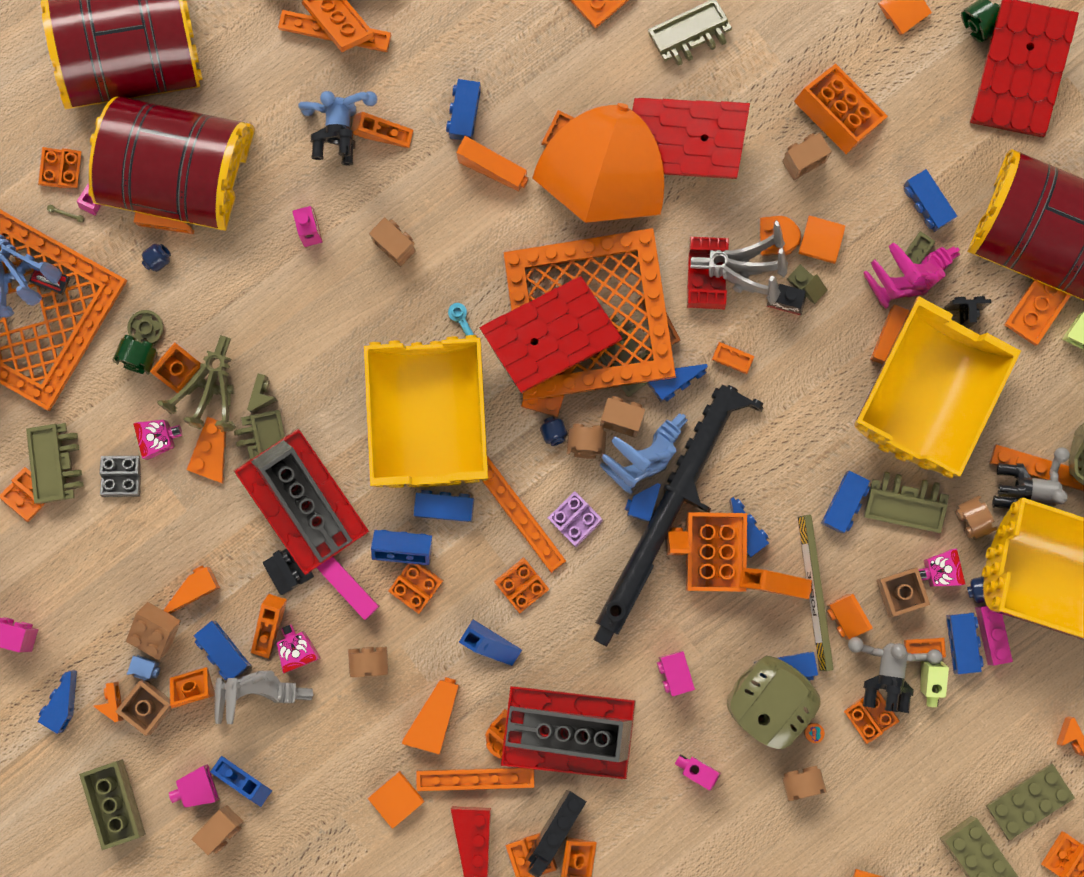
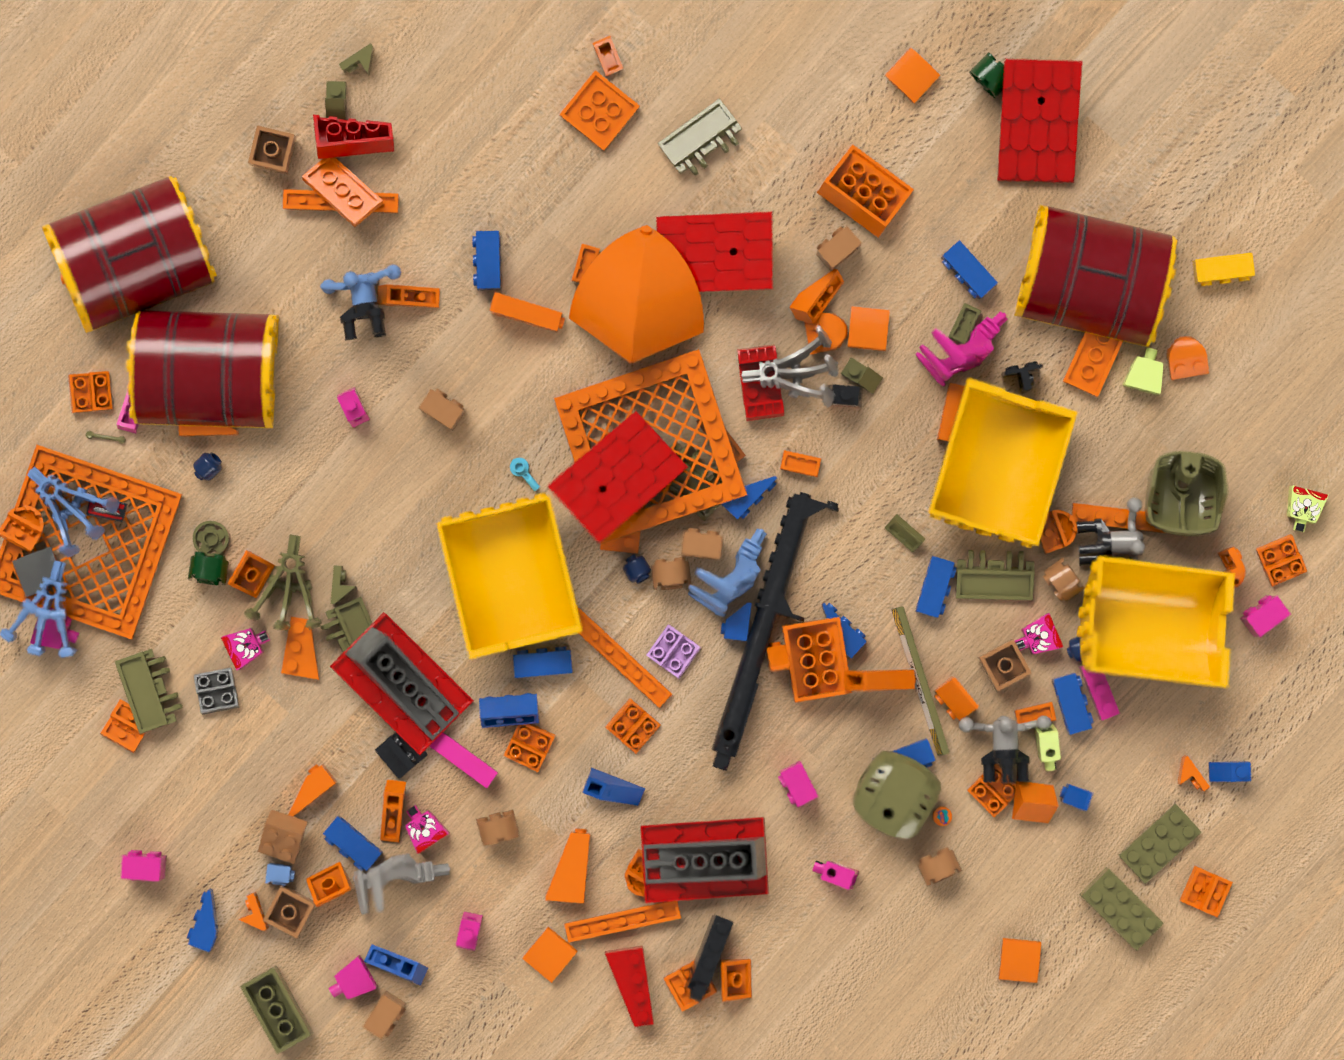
camera: 20 degrees left, 5 degrees up
(319, 760) = (469, 931): none -> dark pink torso
(776, 200) = (816, 297): none -> orange slope
(824, 444) = (904, 533): none -> olive plate
(910, 736) = (1034, 802): none -> orange slope
(954, 738) = (1075, 796): none -> blue slope
(979, 469) = (1058, 531): none -> orange slope

